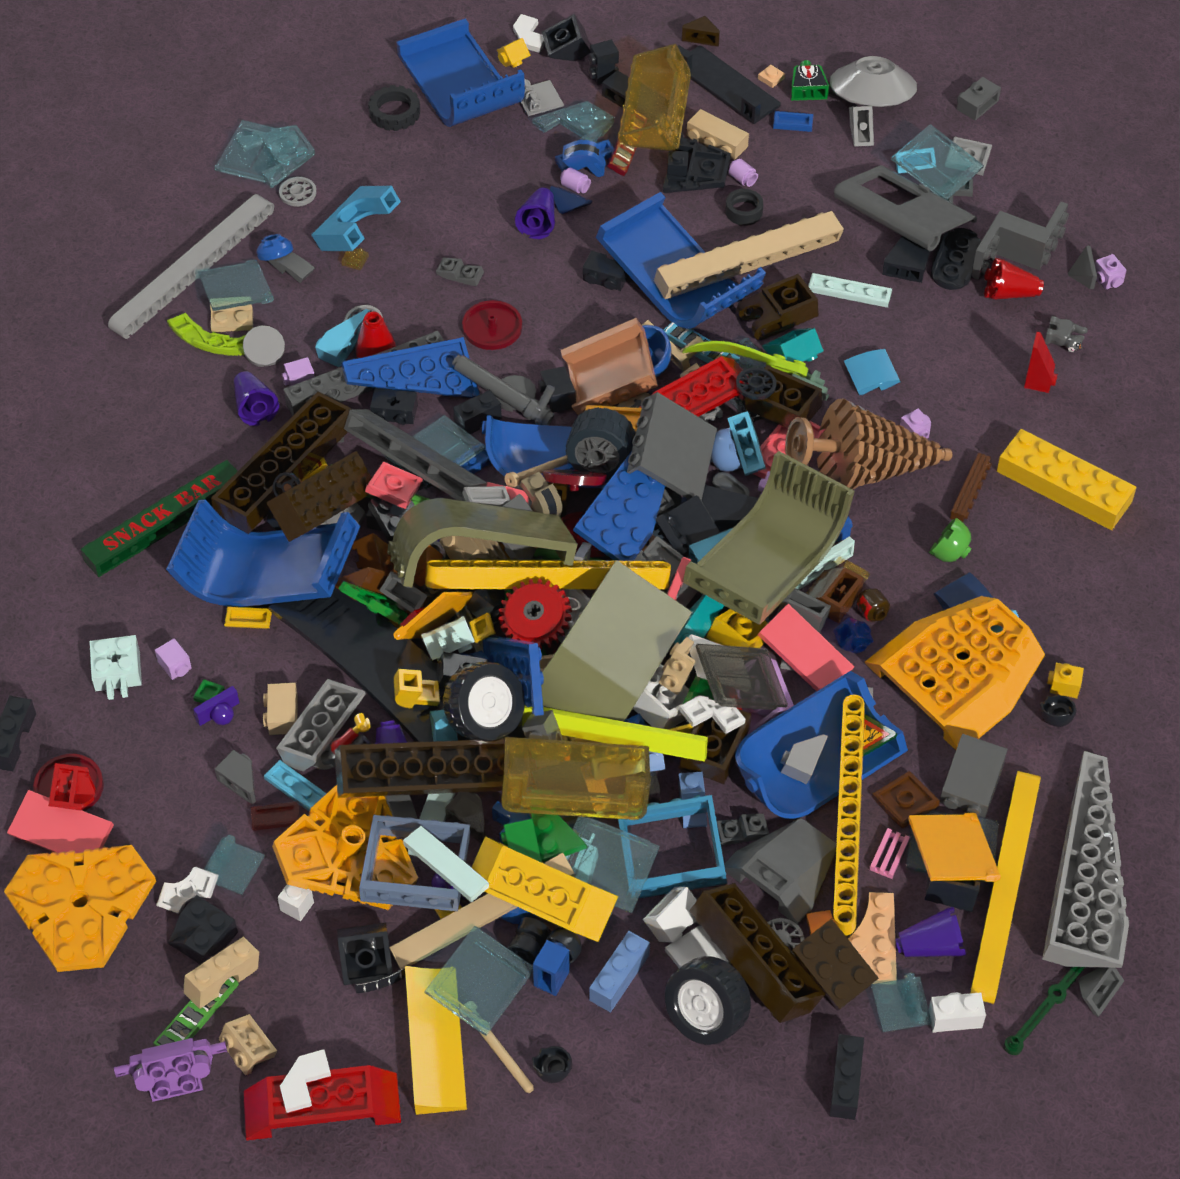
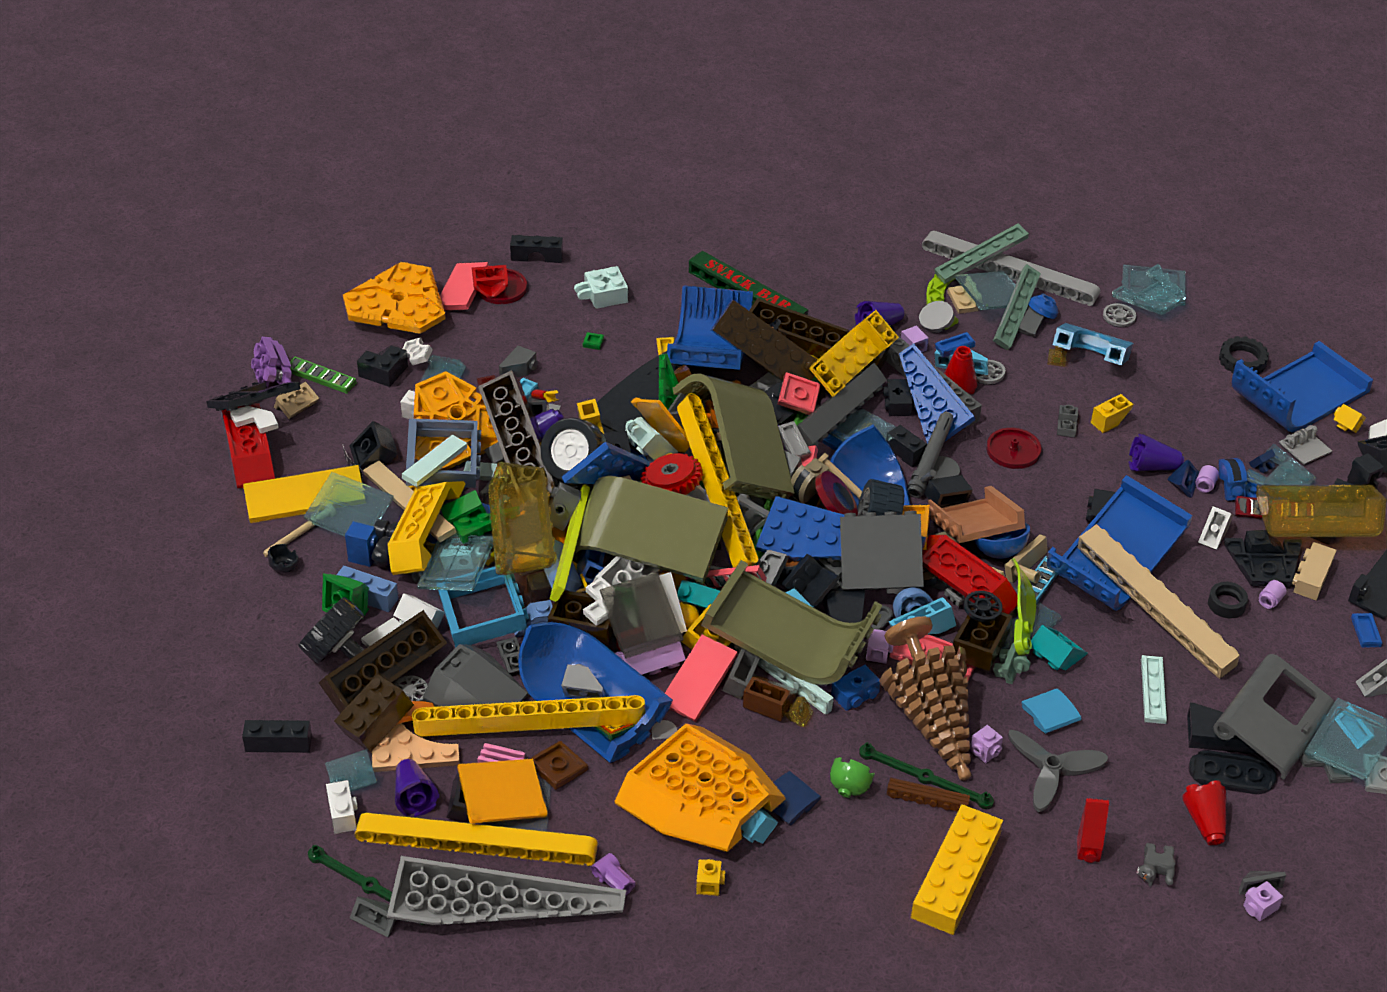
camera: 80 degrees right, 10 degrees down
(173, 659) = (617, 315): lavender brick -> none
(176, 279) = (981, 253): none -> sand green plate
(205, 981) = (358, 381): tan arch -> none
(217, 708) = (577, 344): dark purple tile -> none
(268, 1097) = (251, 394): none -> black wing
(272, 269) = (1016, 307): none -> sand green plate
(281, 707) = (582, 376): tan brick -> none
(318, 724) = (569, 390): light grey slope -> none
(323, 400) = (853, 352): none -> yellow slope
(333, 333) = (948, 346): none -> blue tile
(464, 230) = (1110, 413): none -> yellow slope
(556, 132) = (1263, 461): none -> dark blue tile
(637, 994) = (337, 587): none -> green slope
(643, 185) = (1215, 527): none -> white slope
(678, 666) = (642, 566): tan bracket -> none
(779, 307) = (1102, 632): dark brown brick -> none
(853, 635) = (723, 711): clear blue brick -> none
(873, 605) = (764, 725): dark brown head -> none
(909, 526) = (868, 752): none -> dark green piece
(945, 386) = (1054, 765): none -> dark grey piece
(973, 775) = (581, 805): dark grey slope -> none
(1020, 240) = (1267, 829): dark grey bracket -> none
(1054, 766) = (610, 871): none -> medium lavender piece
(1062, 708) = (667, 865): black hair -> none

